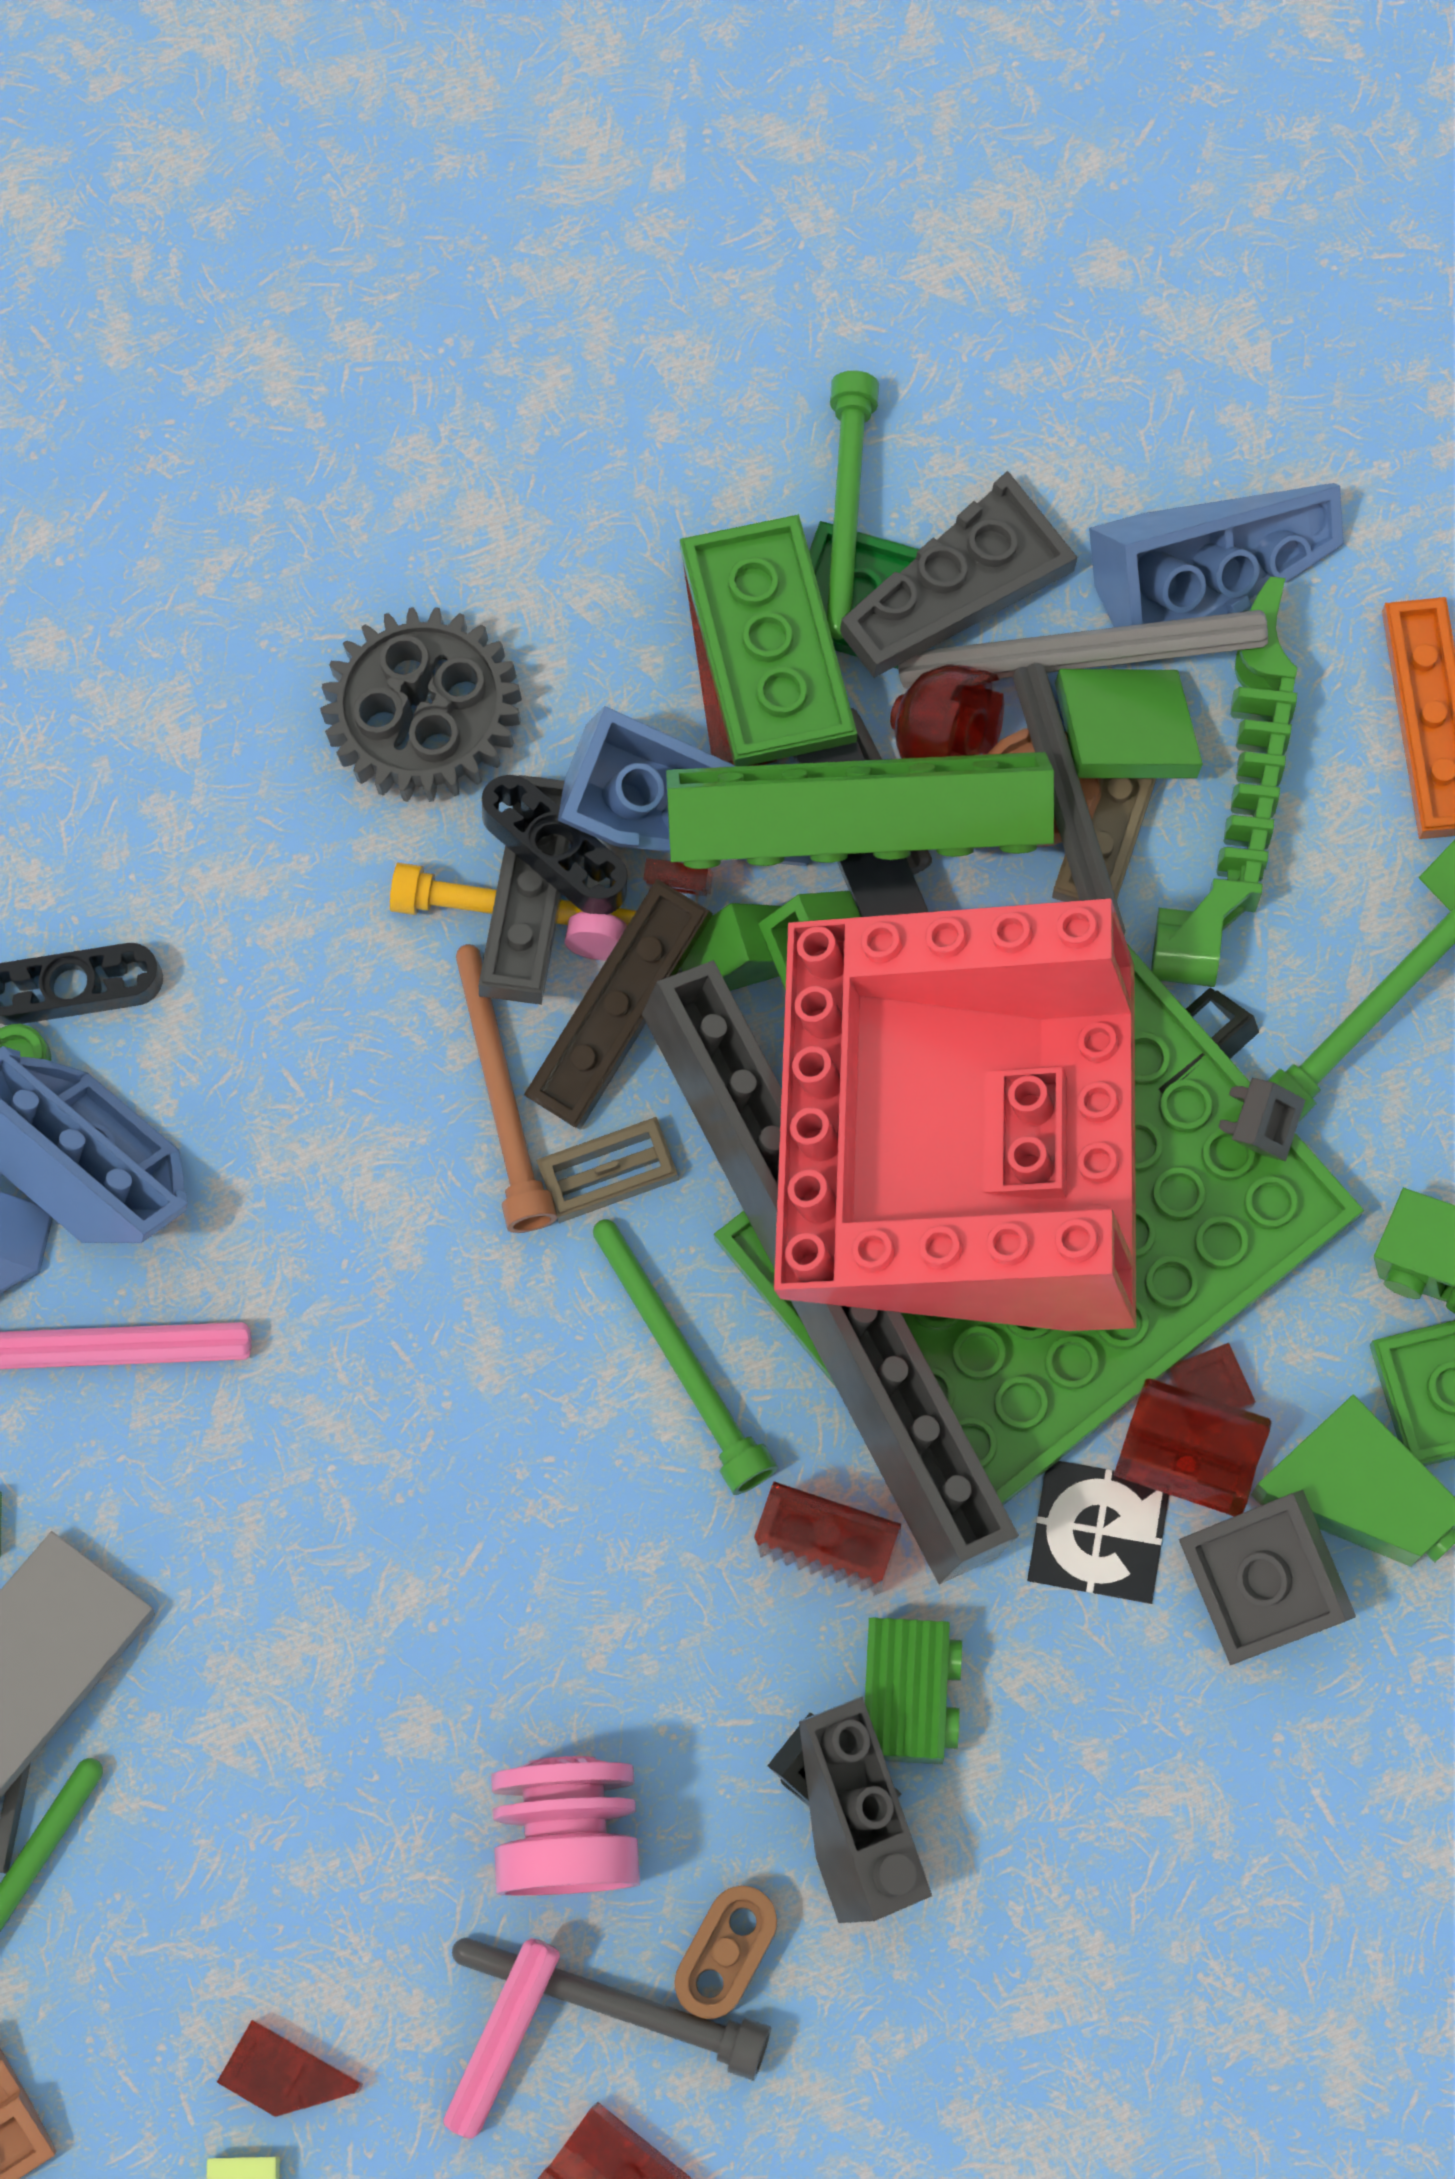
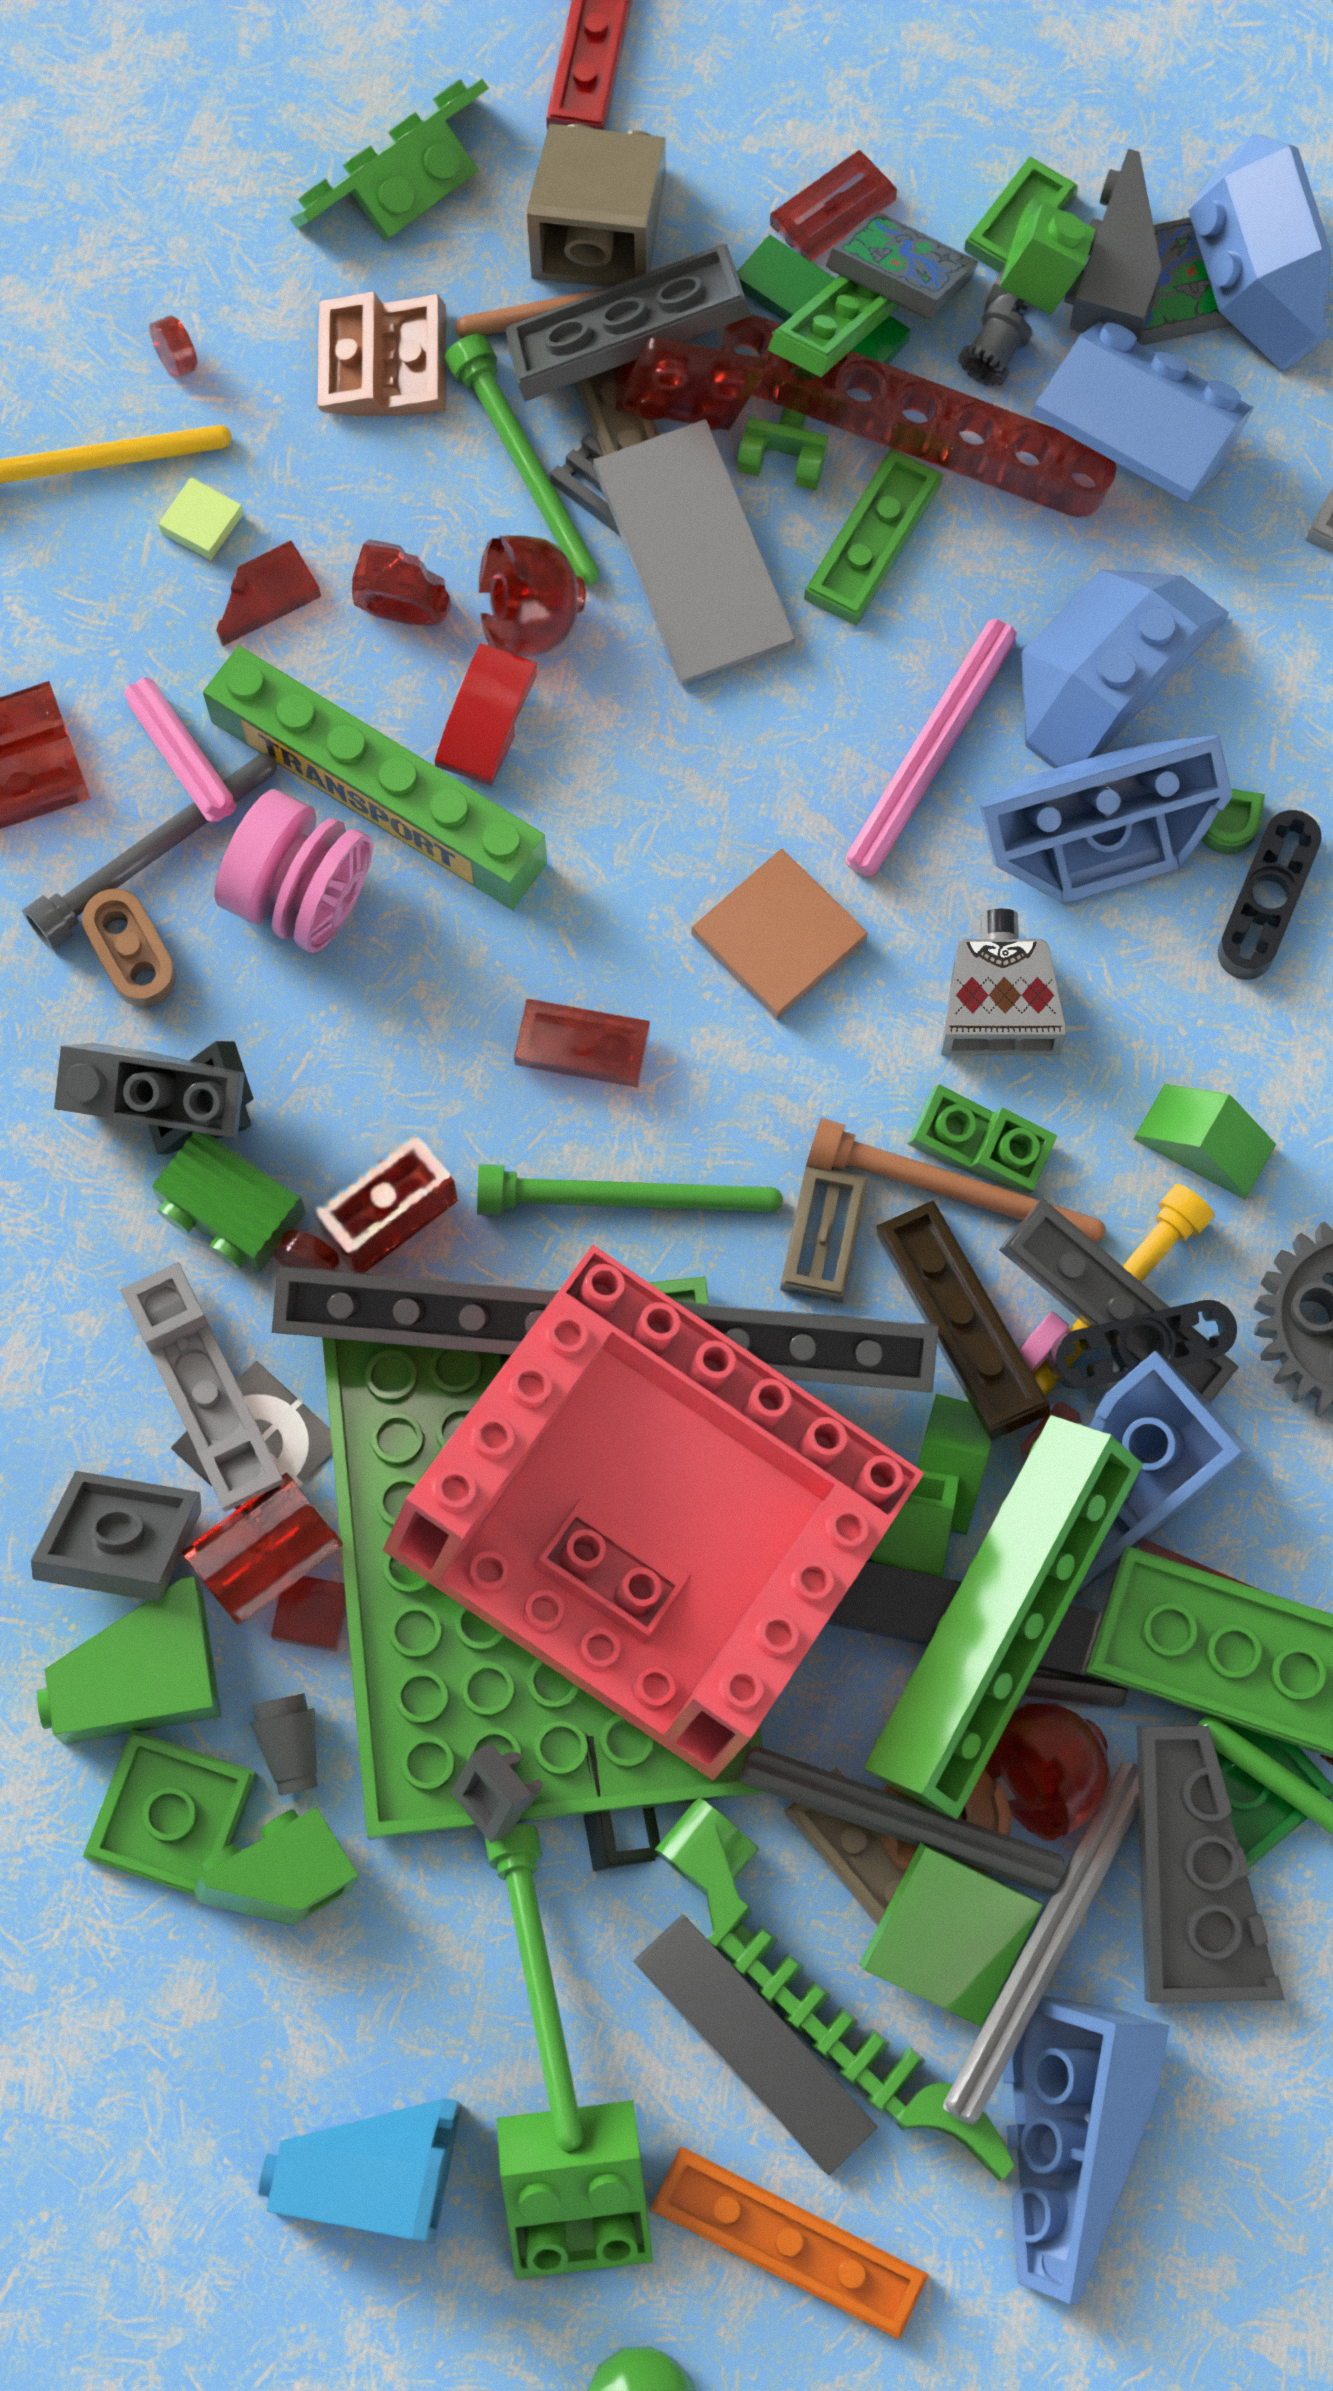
camera: 115 degrees right, 0 degrees up
(151, 1799) = (530, 594): none -> clear red cylinder
(206, 1938) = (398, 586): none -> clear red rock
(295, 1764) = (485, 714): none -> red slope
(299, 1145) = (1003, 994): none -> light grey torso
(329, 915) = (1208, 1136): none -> bright green slope
(352, 1372) = (779, 933): none -> nougat tile
(420, 1829) = (376, 777): none -> bright green brick
(442, 1089) = (982, 1141): none -> bright green slope
(563, 1475) = (582, 1043): none -> clear red plate
(912, 1587) = (305, 1250): none -> clear red tile
(1089, 1596) = (202, 1387): none -> light grey slope
(1310, 820) = (755, 2044): none -> dark grey slope
(1329, 1330) = (287, 1742): none -> dark grey cone

